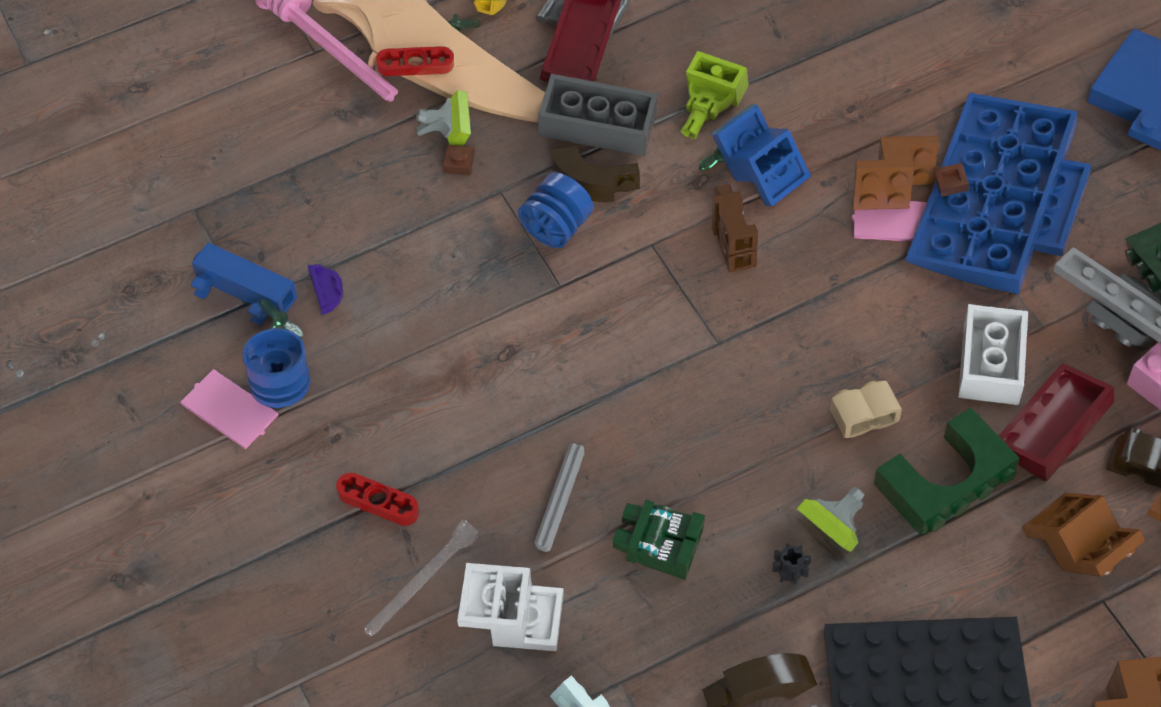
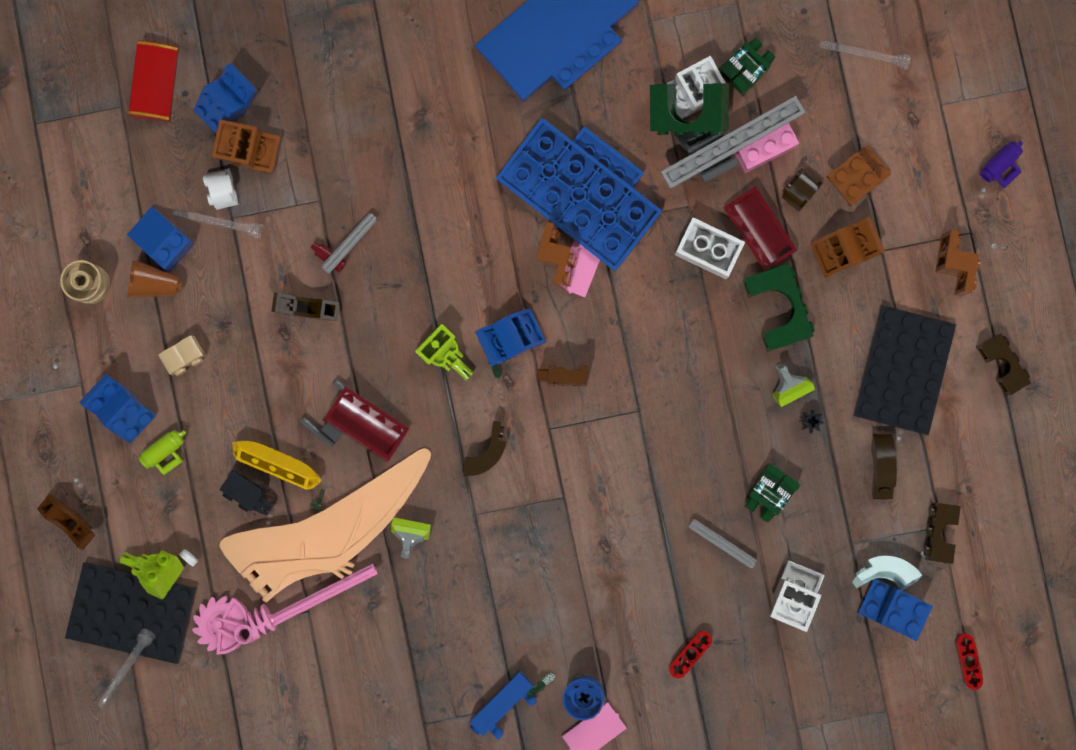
camera: 70 degrees left, 30 degrees up
(327, 287) = (519, 649): dark purple tile -> none
(406, 69) = (361, 533): red beam -> none
(458, 160) = (441, 536): copper plate -> none
(463, 535) = (733, 609): clear piece -> none
(555, 210) = (516, 486): blue wheel -> none
(597, 114) = (441, 434): dark grey brick -> none
(865, 408) = (720, 339): tan brick -> none
(951, 179) = (570, 221): copper plate -> none

